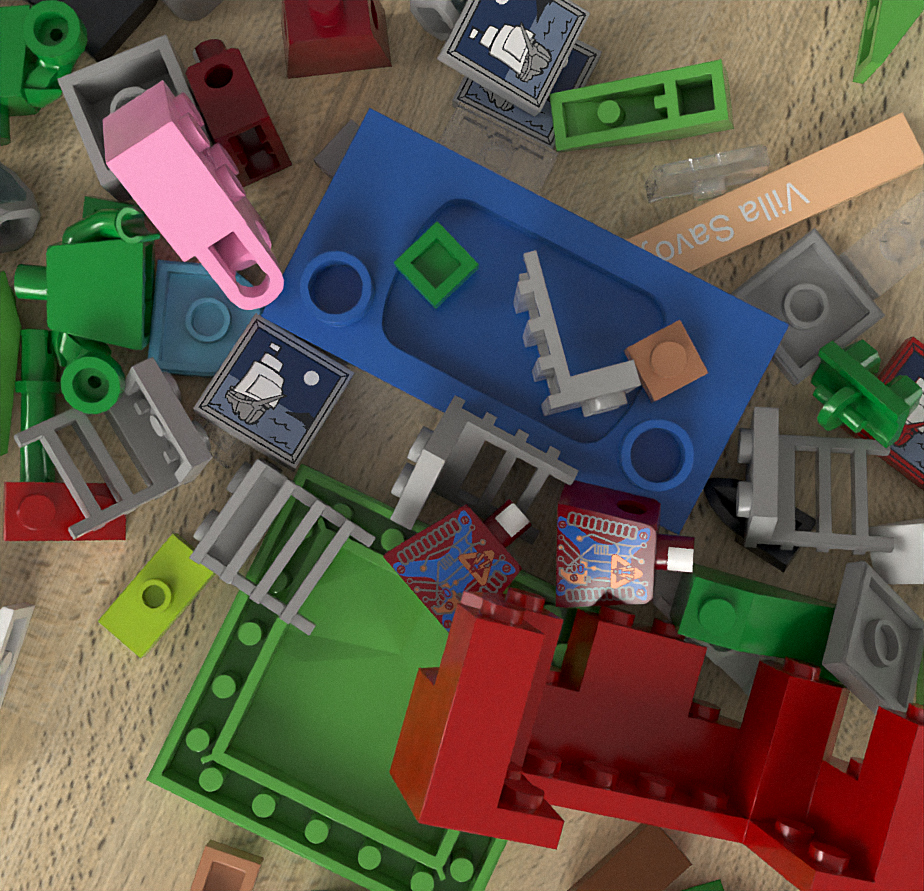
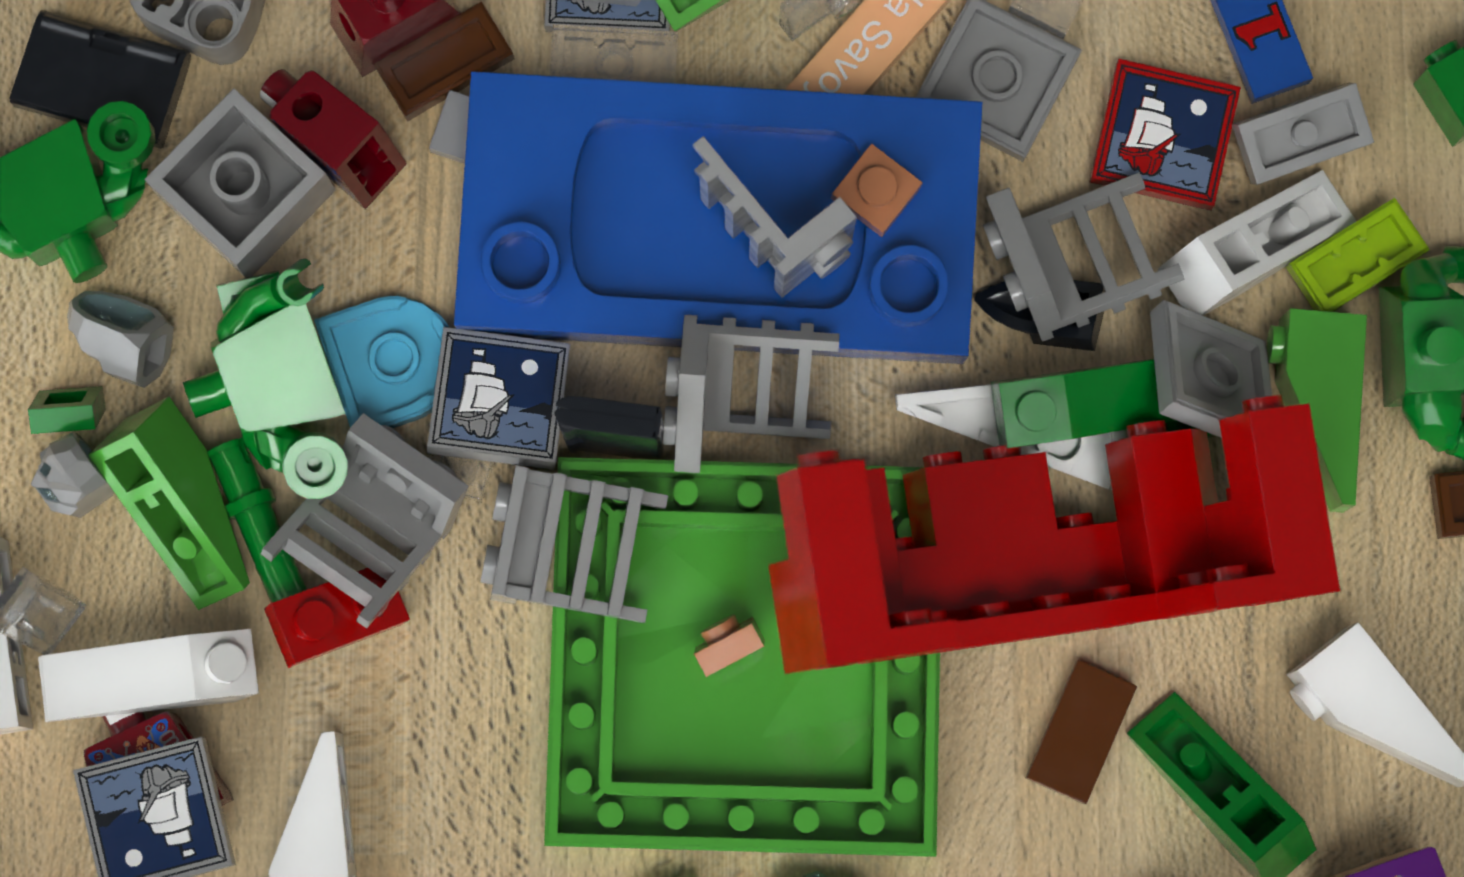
camera: 25 degrees left, 5 degrees down
(156, 596) = (469, 661): lime plate -> none
(190, 191) = (338, 226): bright pink brick -> none
(348, 91) = (443, 61): none -> reddish brown tile
(348, 461) = (611, 427): none -> black piece
(369, 685) = (727, 643): none -> nougat plate
(436, 265) = (608, 196): green tile -> none
(459, 557) = (741, 479): torso -> none
(612, 547) = (908, 395): dark red torso -> none
(857, 397) = (1087, 144): green hips -> none

